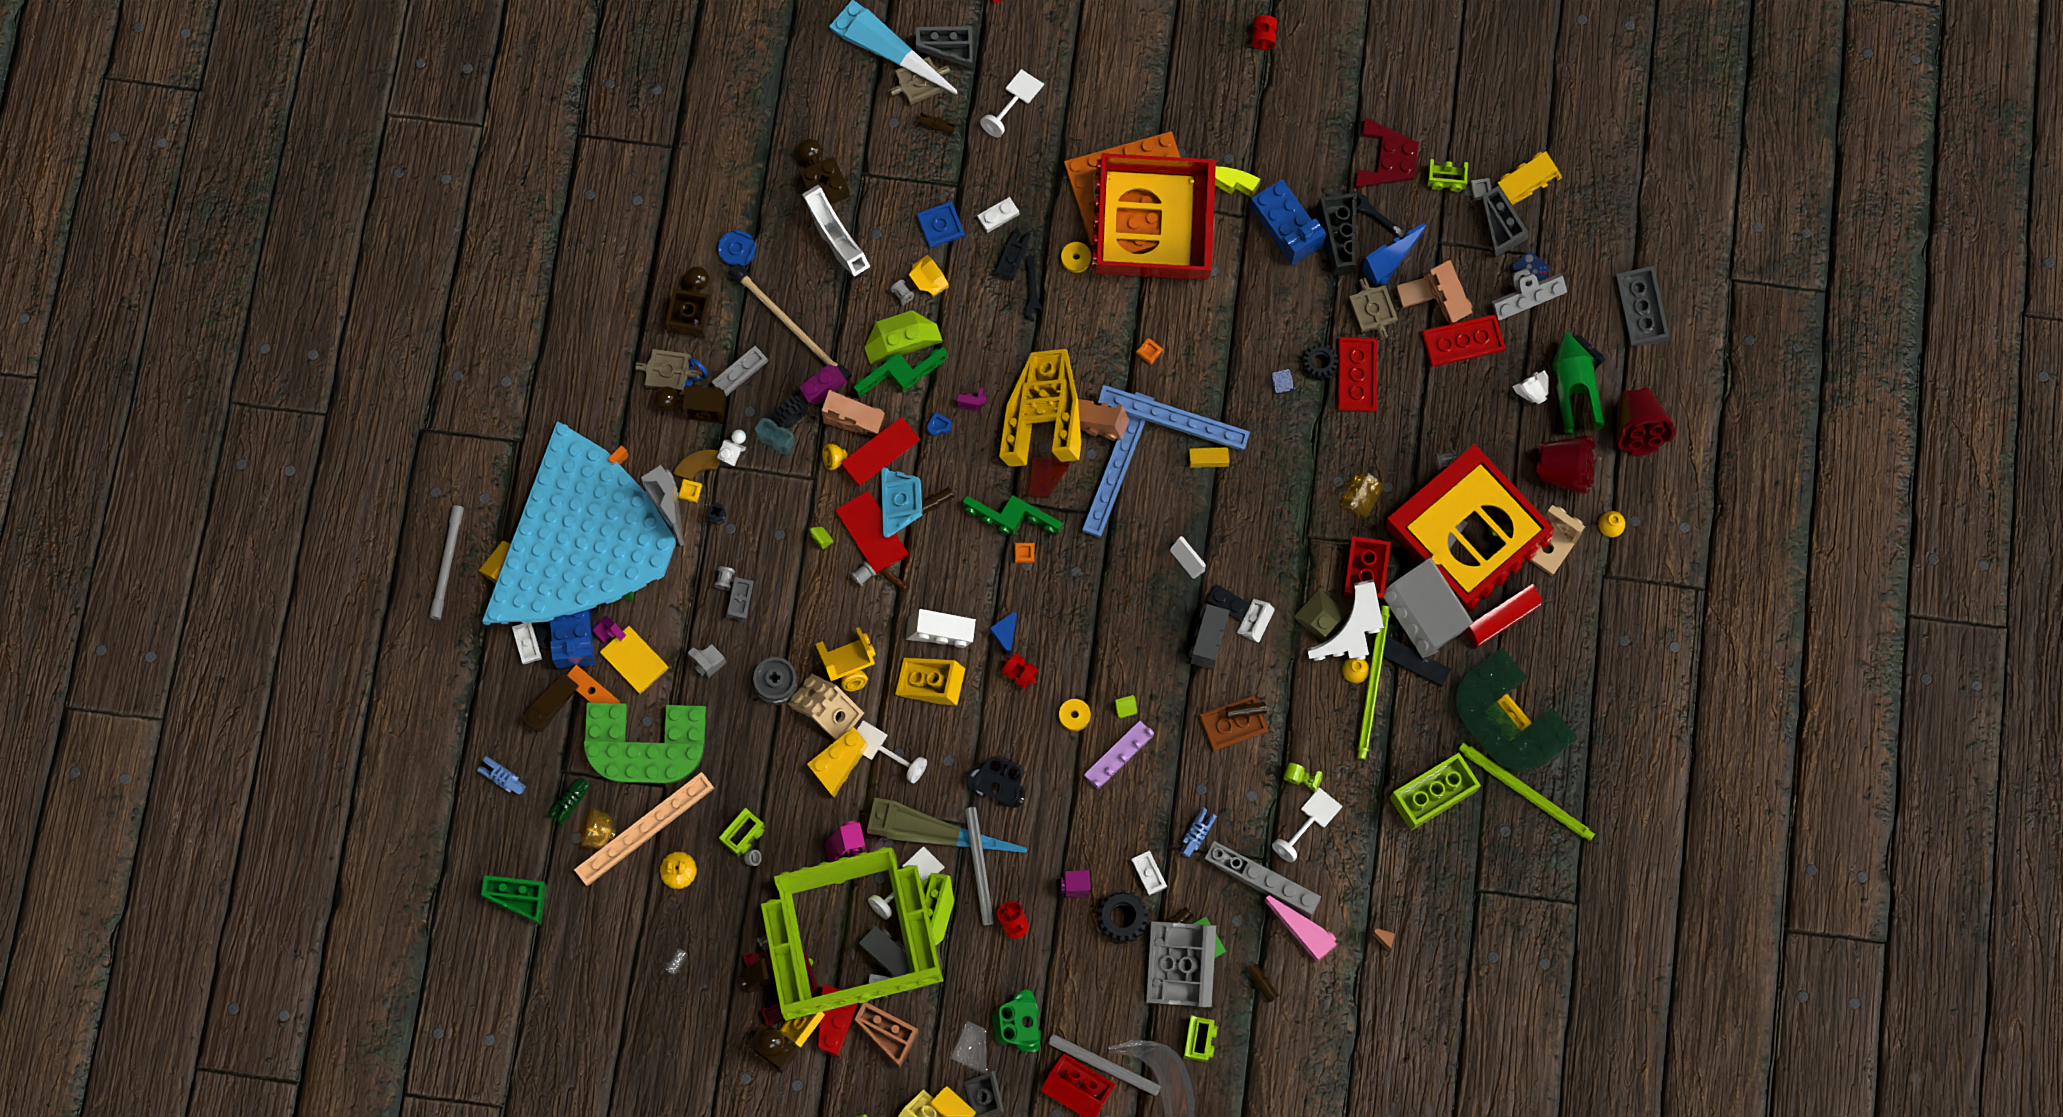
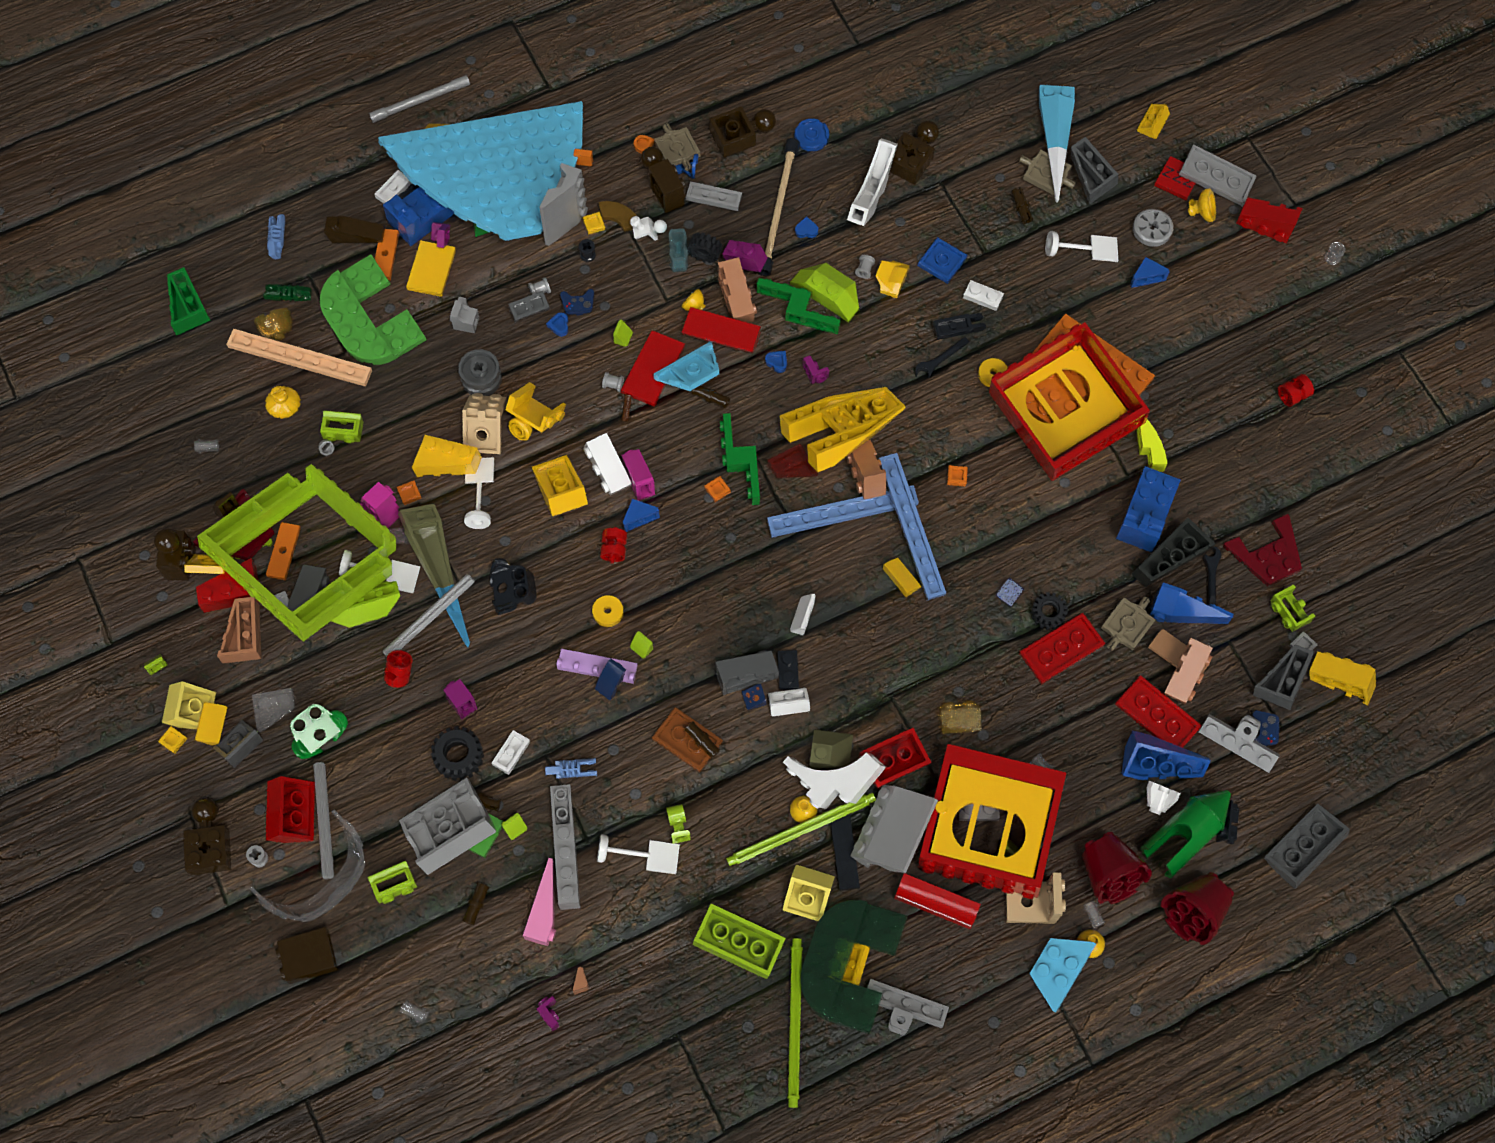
camera: 55 degrees right, 5 degrees down
(639, 397) = (642, 142): none -> orange tile
(765, 556) = (578, 304): none -> dark blue piece
(771, 585) = (558, 324): none -> blue tile
(820, 945) = (285, 541): none -> orange tile
(828, 315) = (806, 228): none -> blue tile
(846, 812) = (409, 492): none -> orange tile
(969, 607) = (638, 474): none -> dark pink slope
(1031, 44) = (1150, 237): none -> light grey wheel
(1074, 68) = (1149, 273): none -> blue slope
(1143, 750) = (610, 679): none -> dark blue slope
(1216, 910) = (514, 826): none -> lime slope
(1234, 645) = (754, 697): none -> dark blue slope
(1321, 1087) = (414, 1012): none -> clear pin
(1397, 982) = (549, 1017): none -> magenta bracket
(1430, 711) = (808, 893): none -> light yellow slope
(1497, 368) = (1153, 757): none -> blue wedge
(1572, 697) = (908, 1006): none -> light grey plate
(1591, 505) = (1093, 914): none -> clear pin
(1617, 560) = (1059, 968): none -> medium azure wing

